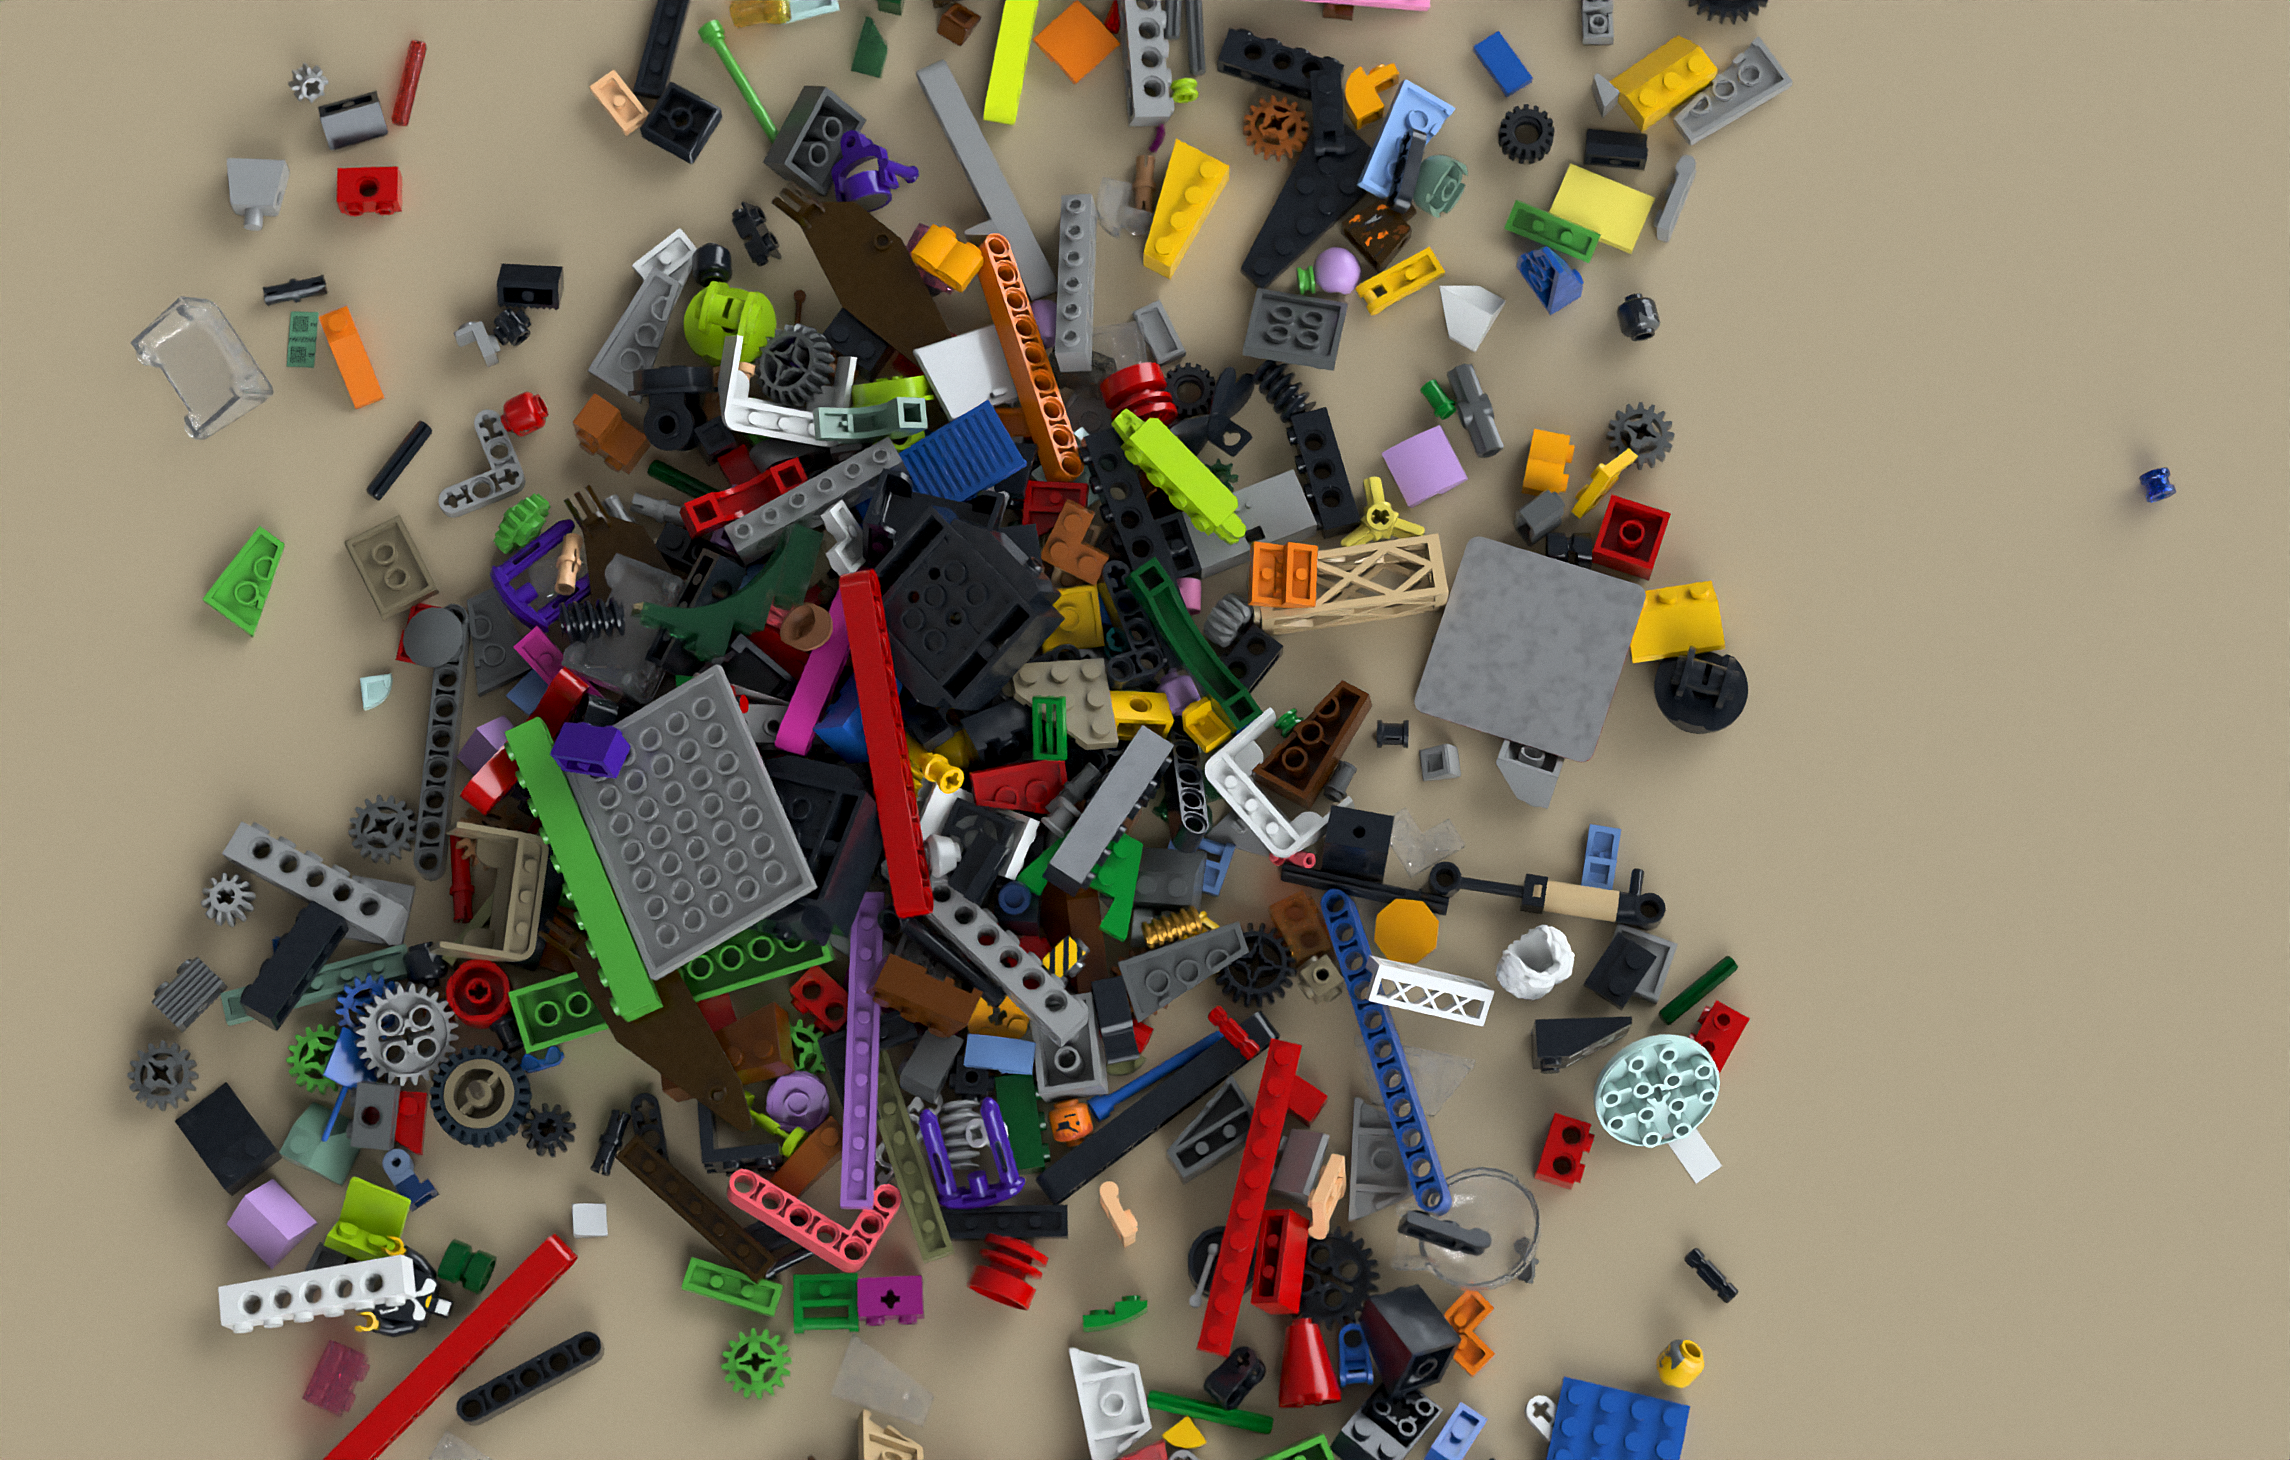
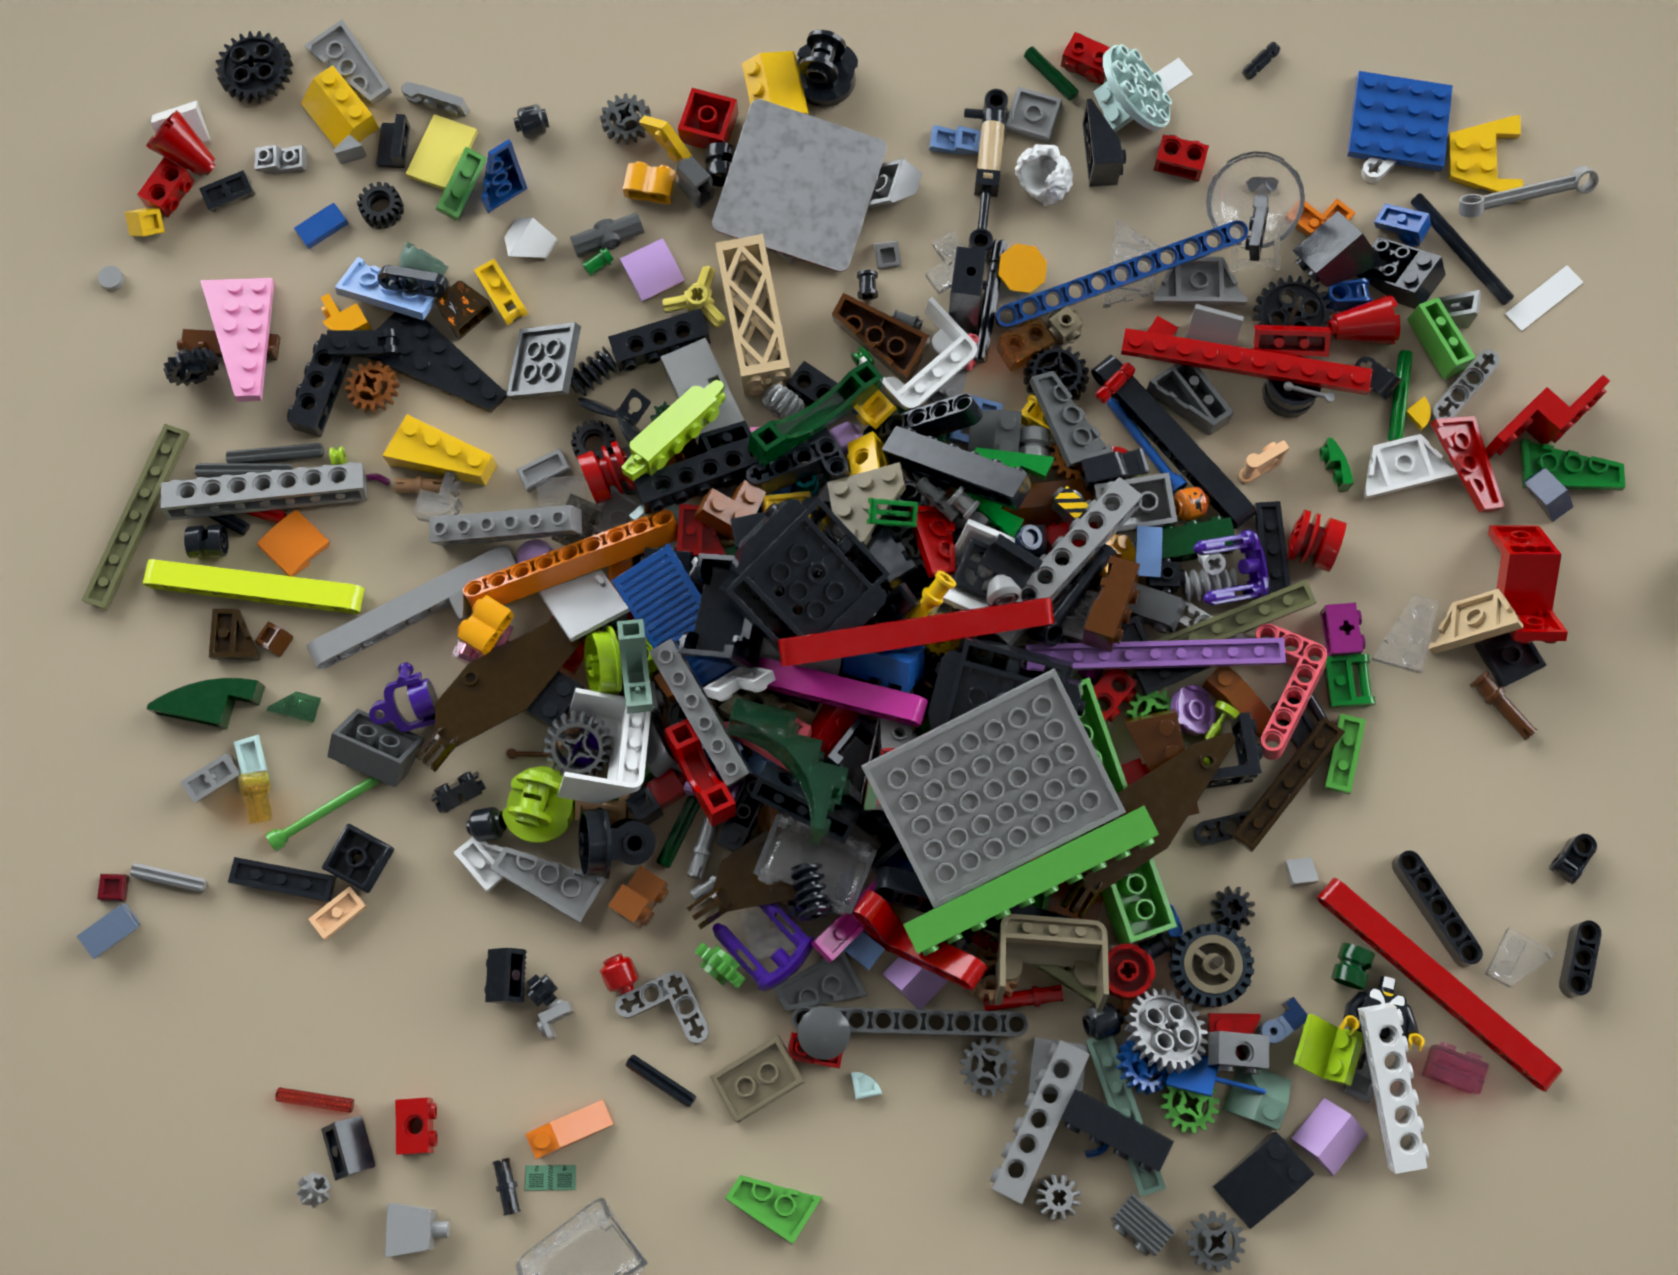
camera: 90 degrees left, 0 degrees up
(568, 564) = (754, 922): light nougat pin -> none
(590, 749) = (935, 873): dark purple brick -> none
(610, 1142) = (1237, 858): black pin -> none
(772, 1362) = (1405, 740): bright green gear -> none
(806, 627) = (815, 709): nougat cap -> none
(1171, 927) = (1038, 425): pearl gold piece -> none
(1282, 575) = (753, 351): orange slope -> none
(1305, 280) = (500, 360): bright green bush -> none
(1325, 1197) = (1248, 309): light nougat plate -> none
(1337, 270) = (491, 339): lavender hair -> none
(1430, 979) = (1066, 240): white fence -> none
(1620, 971) = (1042, 121): black plate -> none
(1680, 1363) = (1331, 74): yellow head -> none

